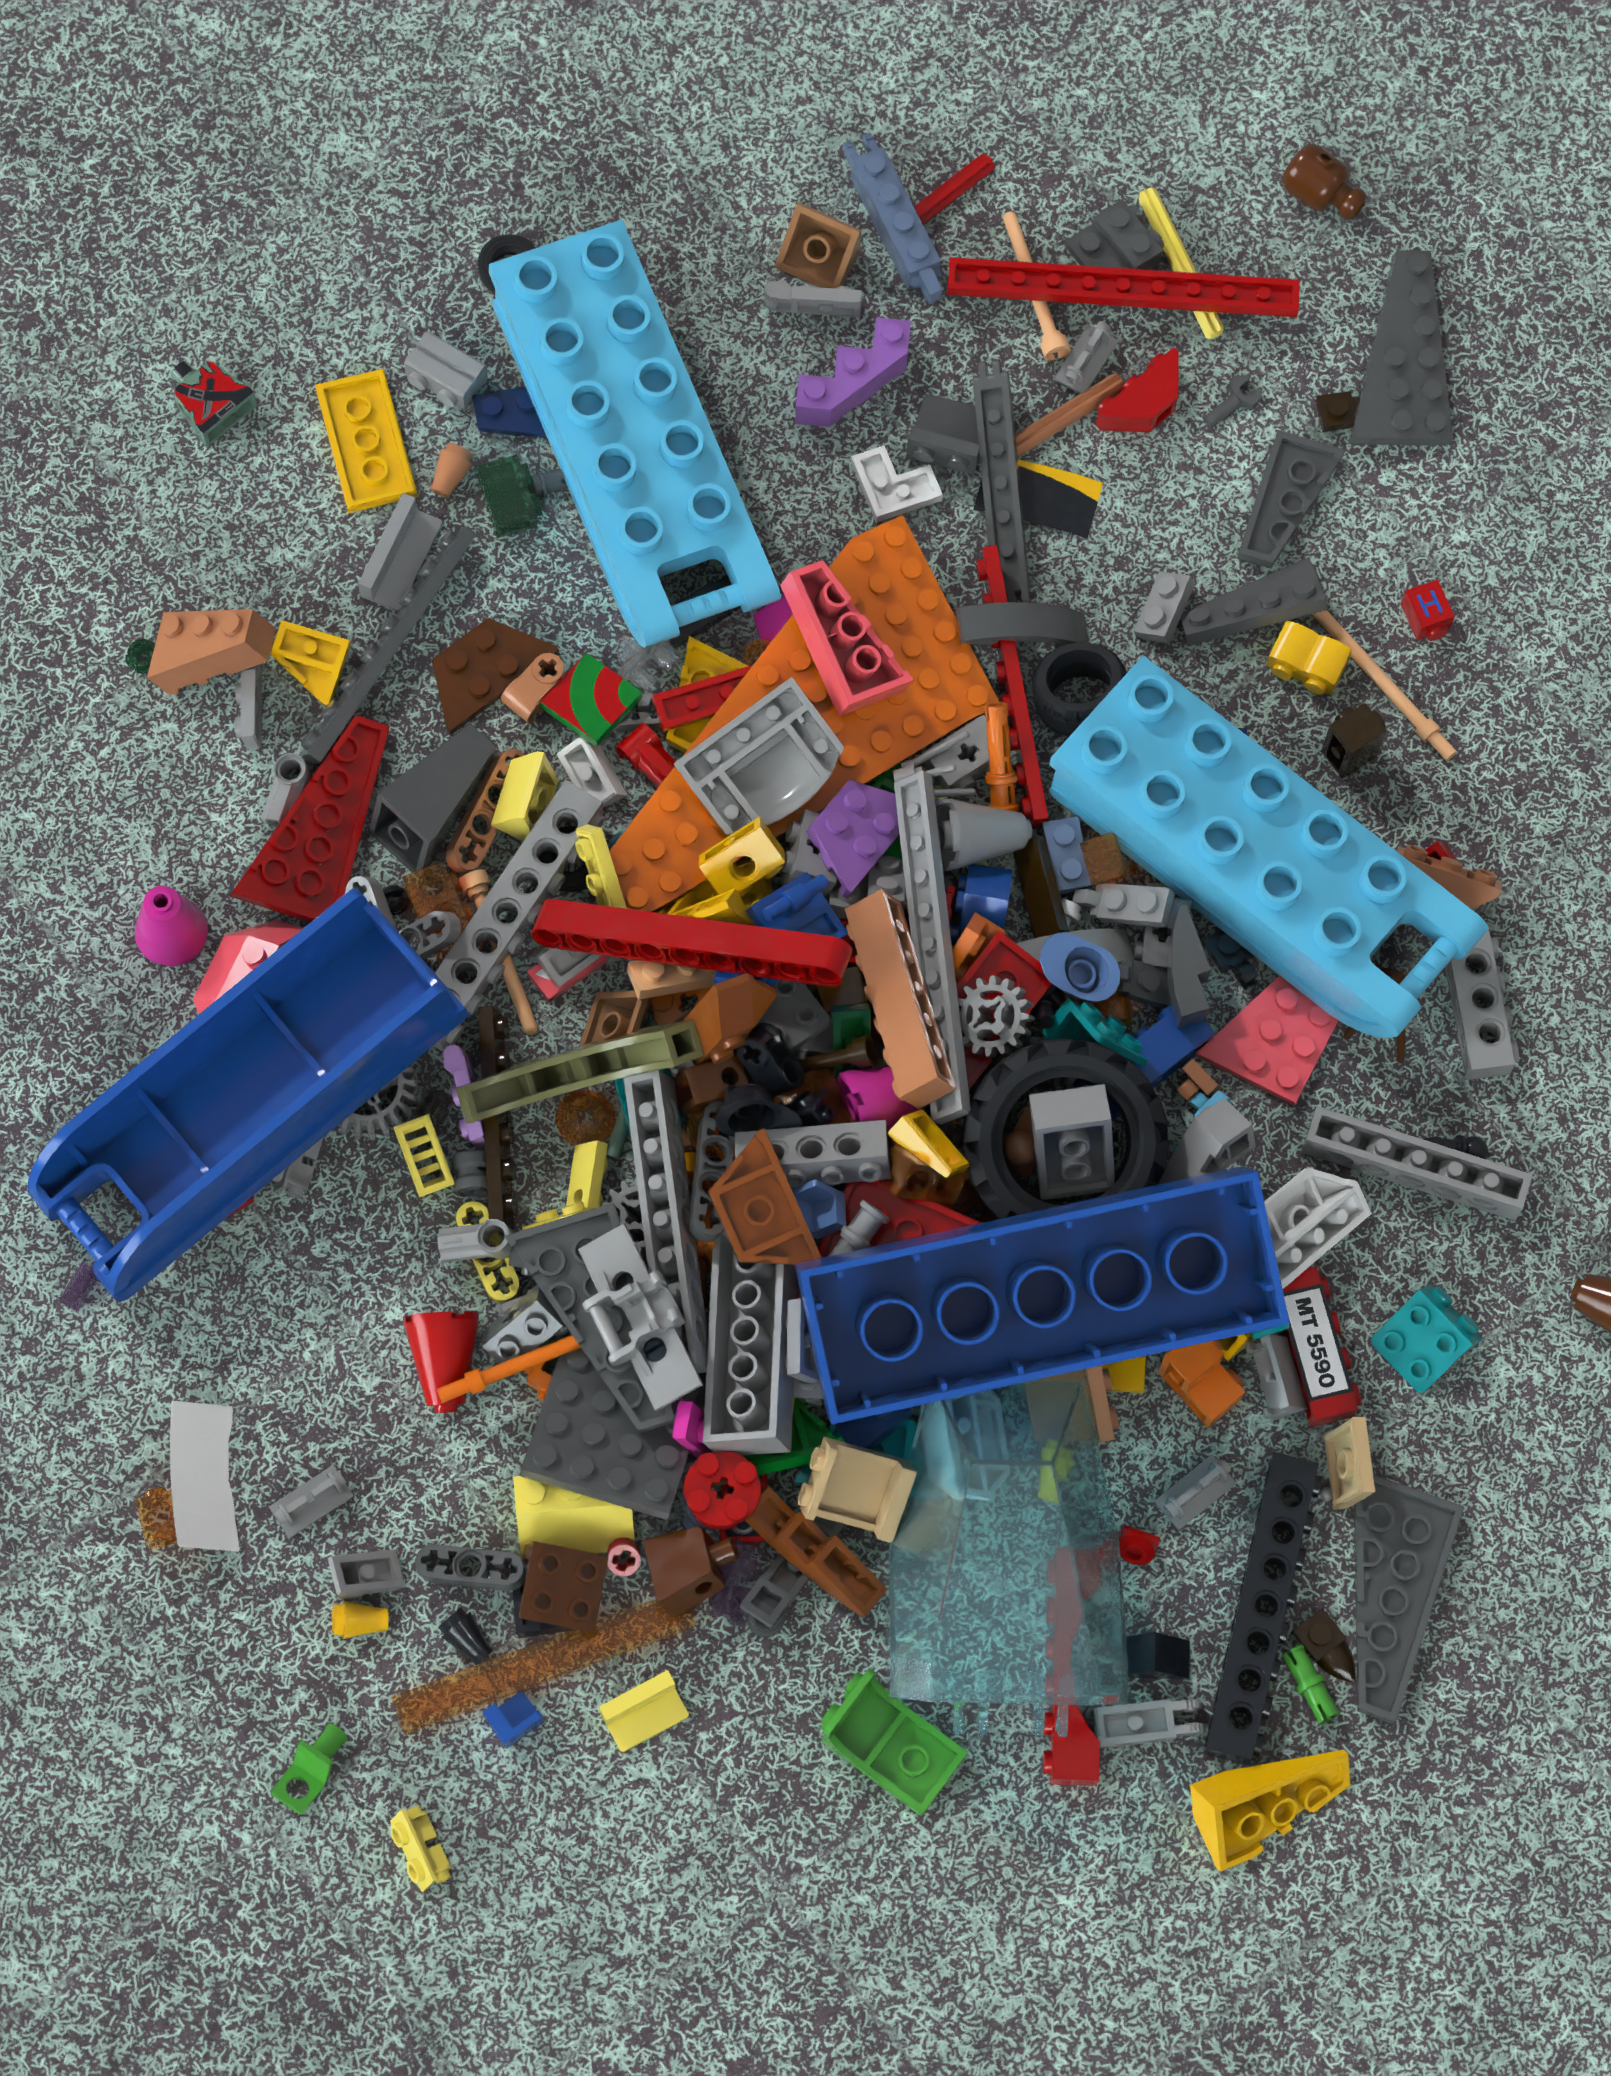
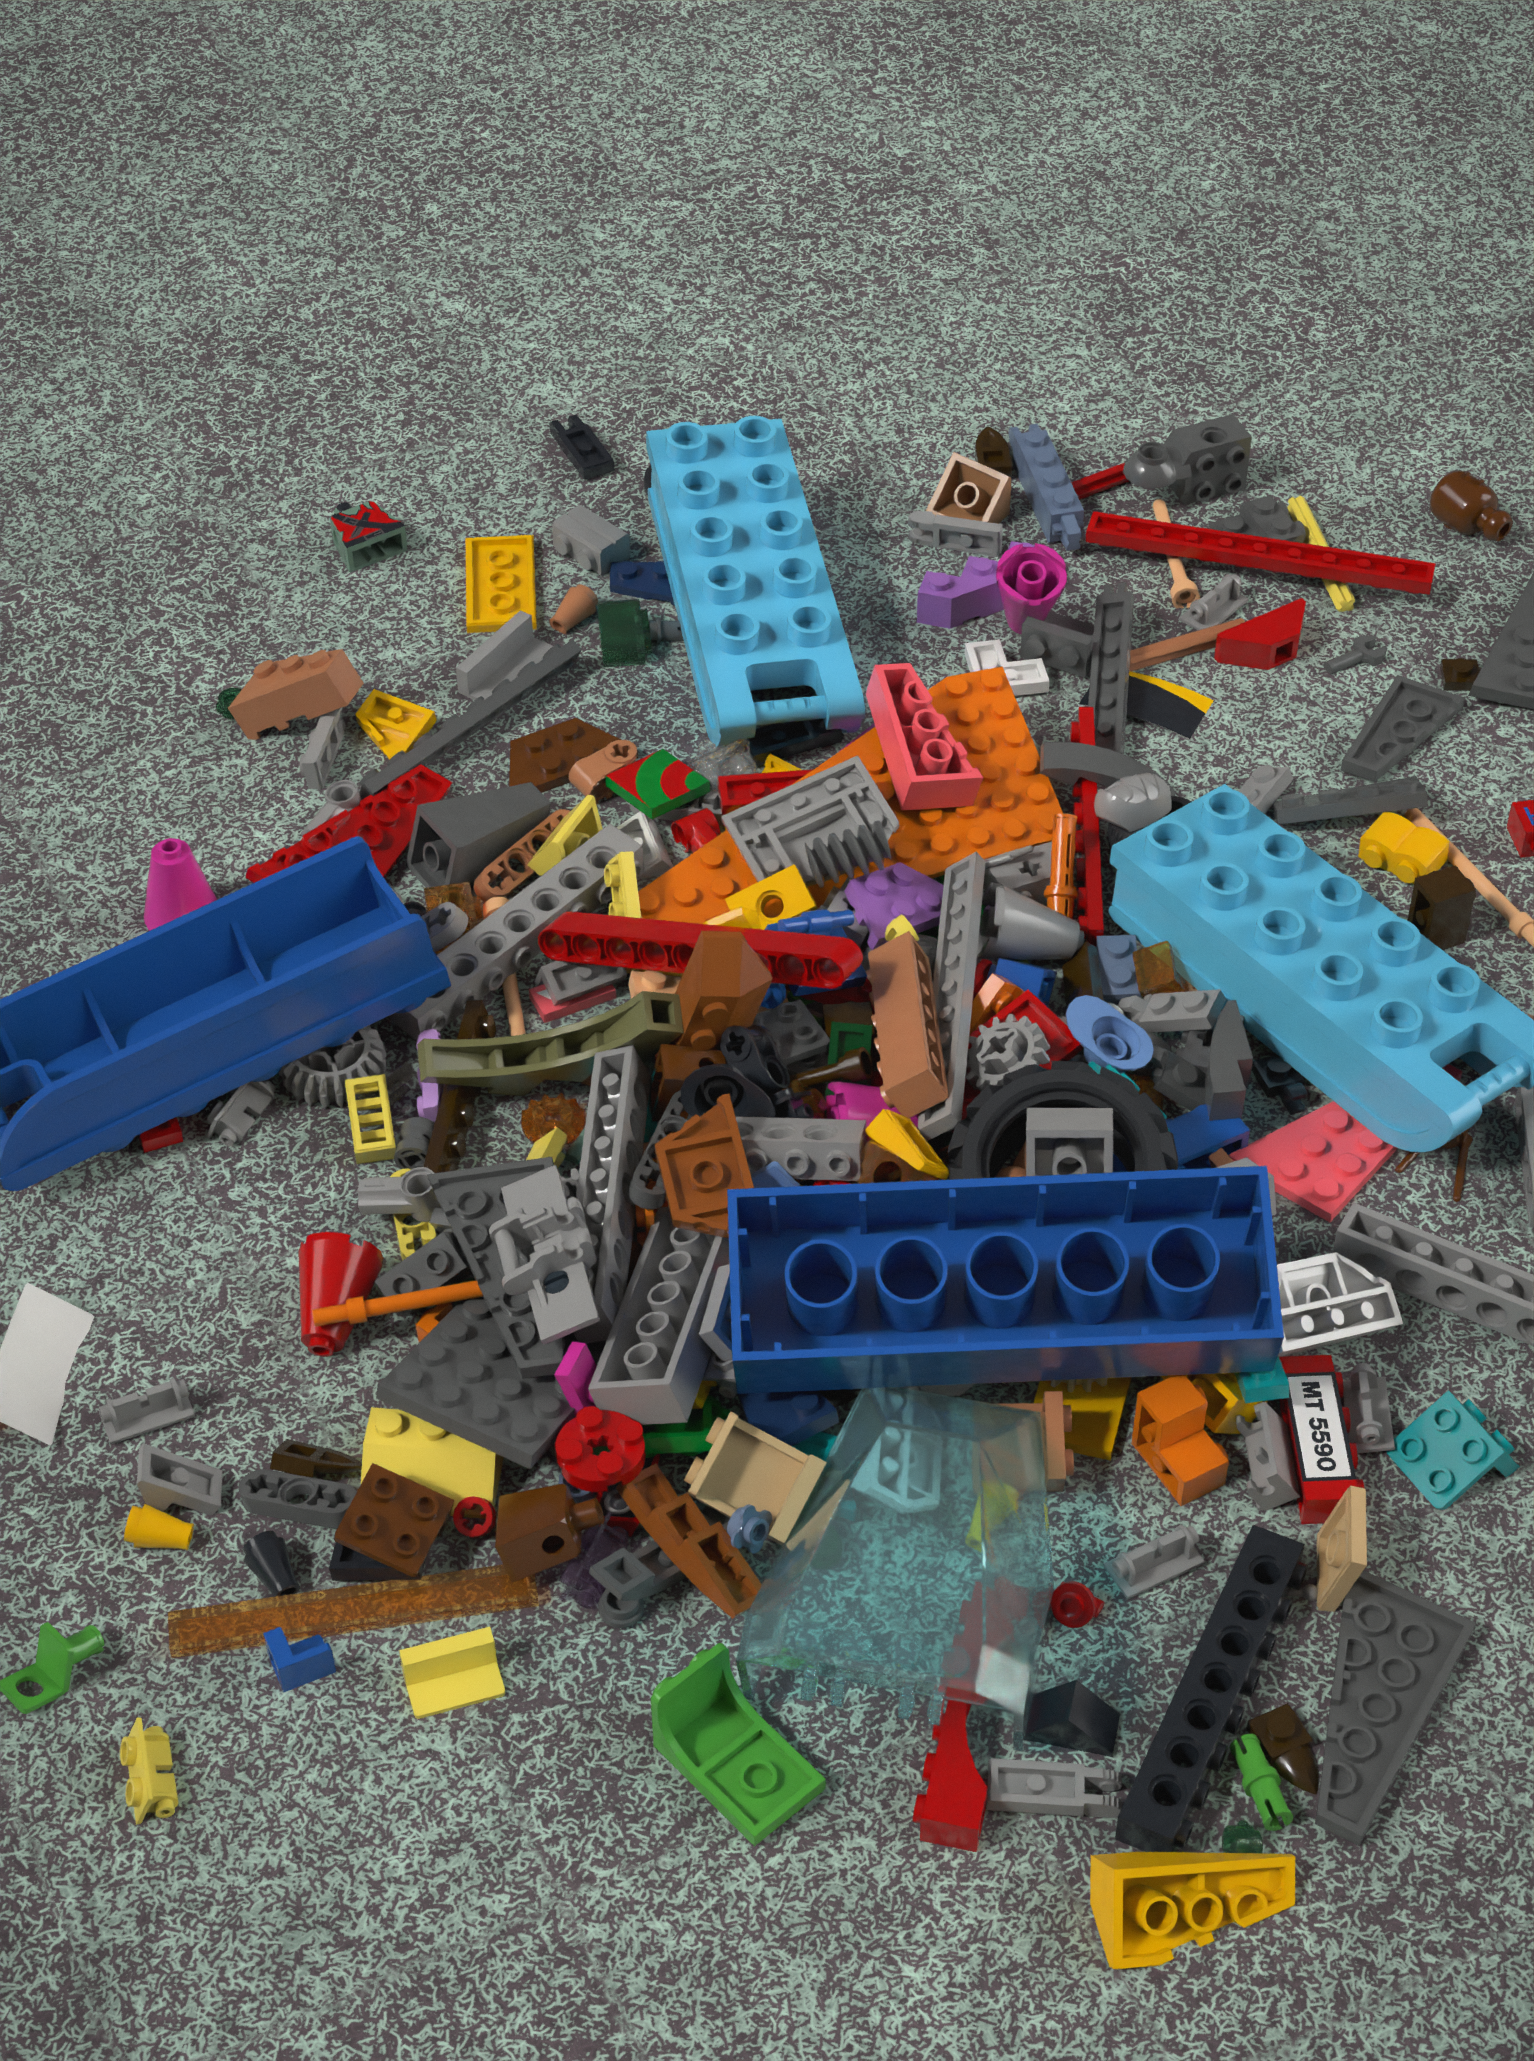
camera: 15 degrees right, 25 degrees down
(403, 232) = (582, 448): none -> black hinge
(467, 1526) = (308, 1460): none -> dark brown plate
(806, 800) = (848, 853): none -> dark grey piece
(829, 175) = (993, 451): none -> dark brown plate
(860, 1535) = (749, 1528): none -> sand blue plate
(872, 880) = (898, 927): none -> light yellow hinge
(912, 392) = (1029, 582): none -> dark pink cone
(1038, 170) = (1195, 460): none -> dark grey brick
(1055, 669) = (1134, 801): none -> light grey piece
(1306, 1739) = (1241, 1839): none -> clear green plate
(1353, 1309) = (1369, 1410): none -> light grey hinge

